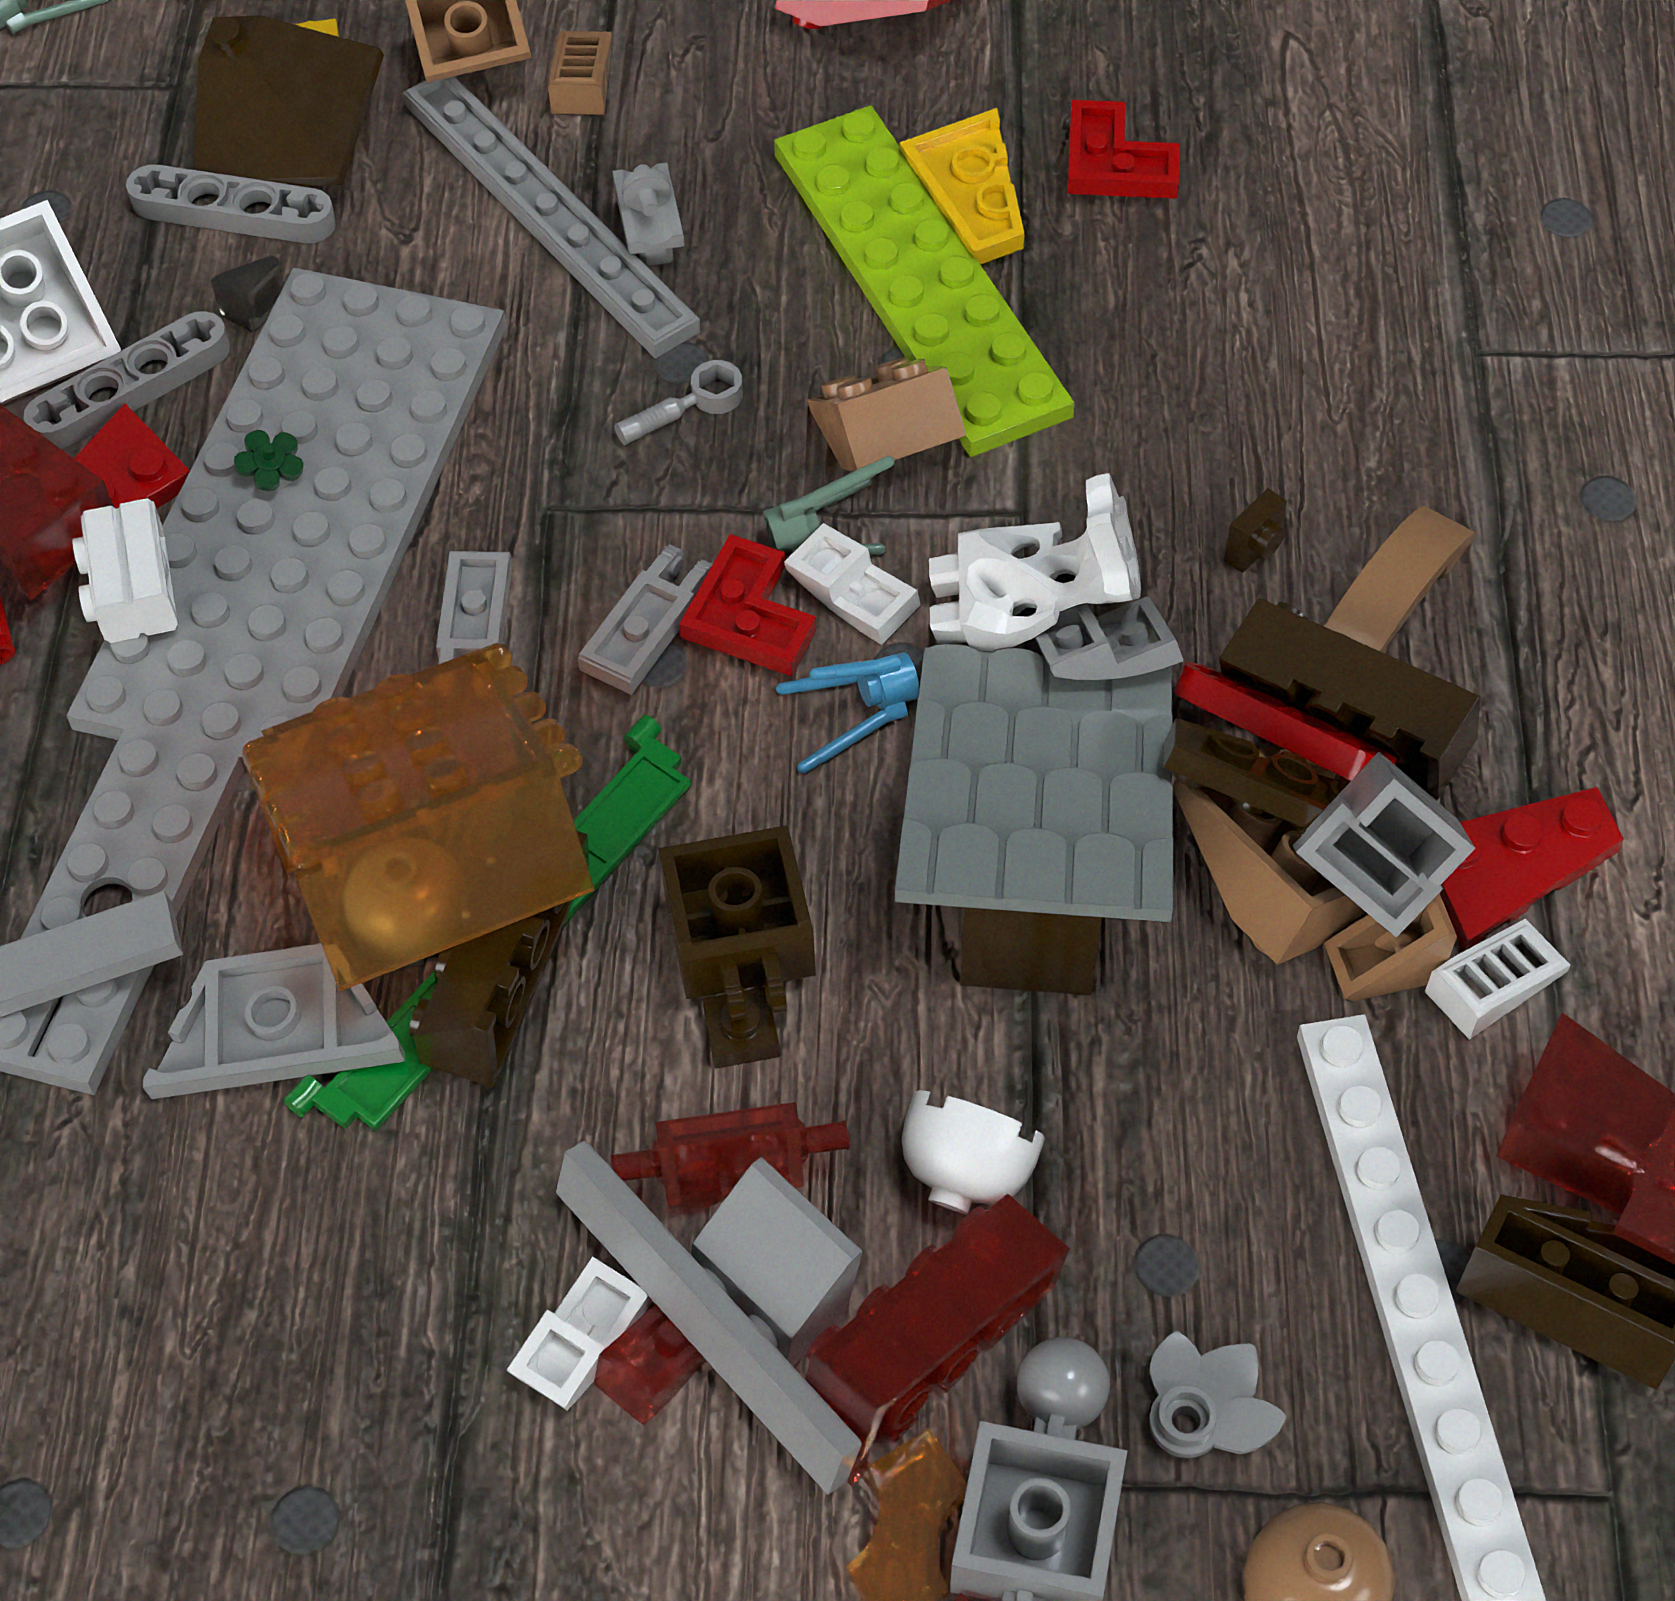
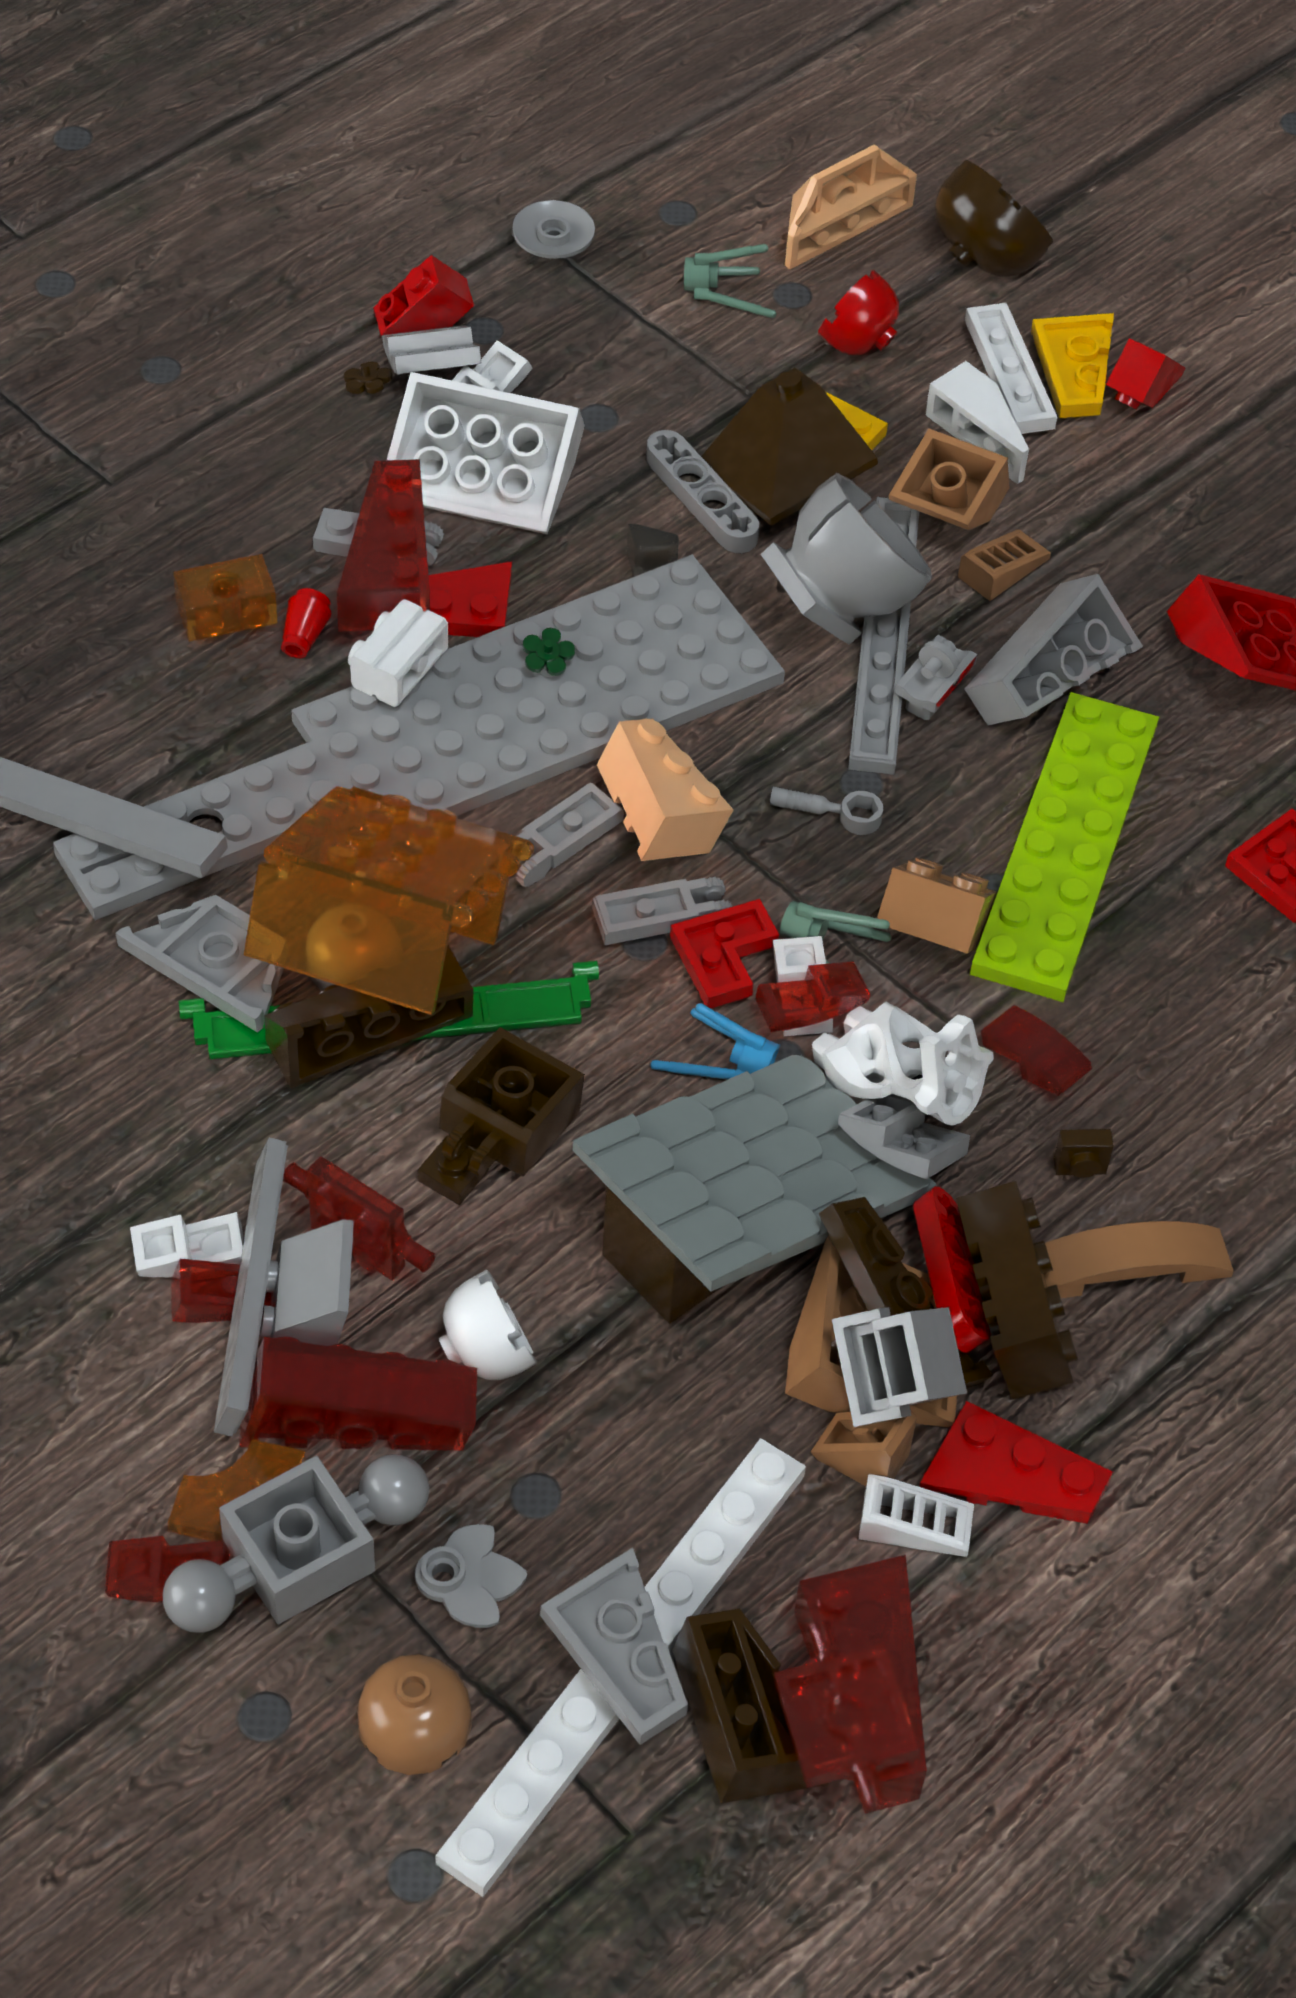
camera: 40 degrees right, 5 degrees down
(123, 373) = (531, 544): light grey beam -> none
(470, 156) = (847, 560): none -> light grey plate
(529, 503) = (661, 792): none -> light nougat wedge
(722, 115) = (1054, 649): none -> light grey wedge
(884, 584) = (824, 994): none -> clear red slope
(971, 183) = (1164, 811): yellow wing -> none
(1138, 471) = (1040, 1050): none -> clear red slope
(1430, 1334) = (618, 1645): none -> light grey wing

